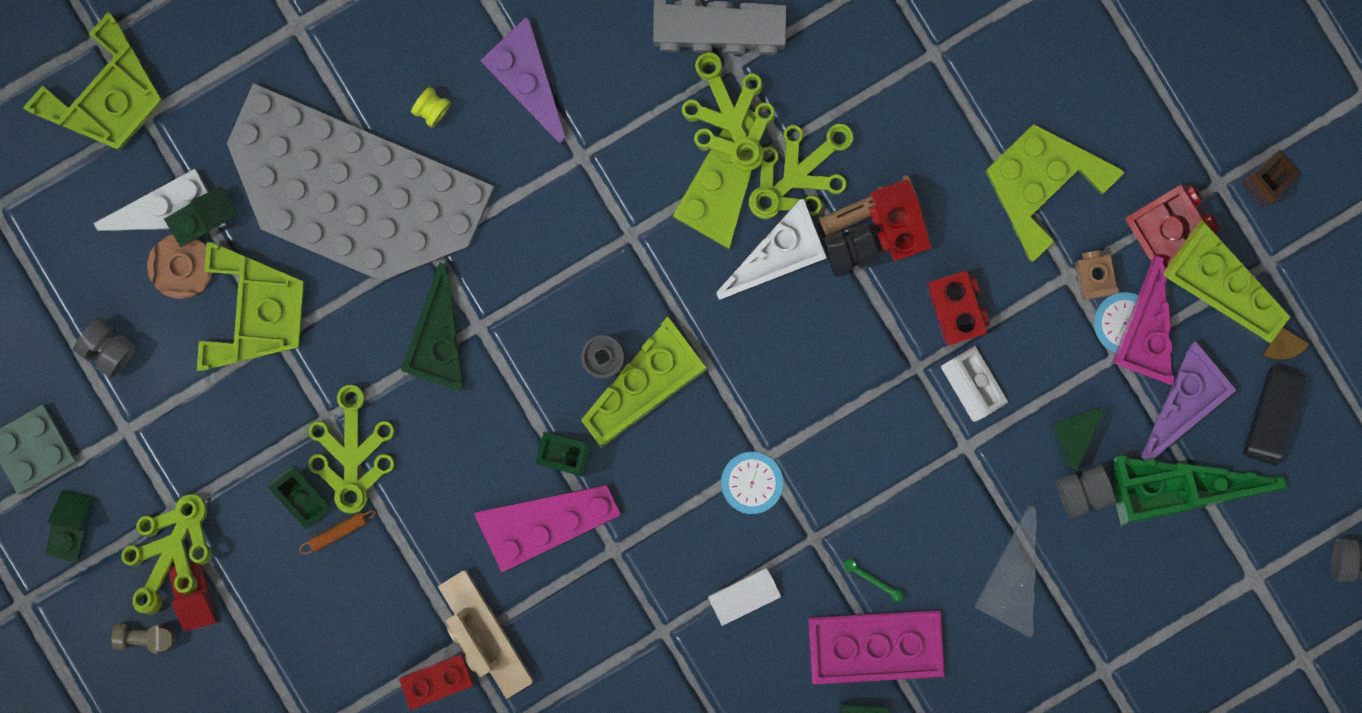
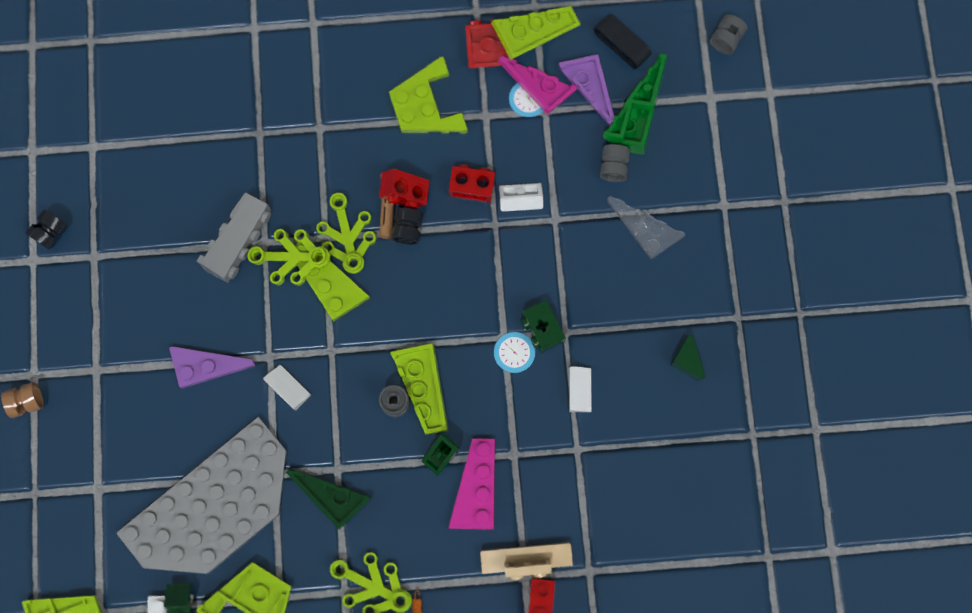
camera: 60 degrees left, 10 degrees down
(430, 107) = (190, 430): neon yellow wheel -> none
(551, 203) = (287, 387): none -> white slope
(784, 250) = (386, 261): white wing -> none
(801, 524) = (542, 314): none -> dark green brick
(851, 566) = (592, 318): green hinge -> none
(876, 647) = (647, 327): dark pink tile -> none
(1075, 435) = (579, 154): dark green slope -> none
(1090, 287) = (496, 105): medium nougat brick -> none
(1285, 346) = (586, 18): pearl gold tile -> none

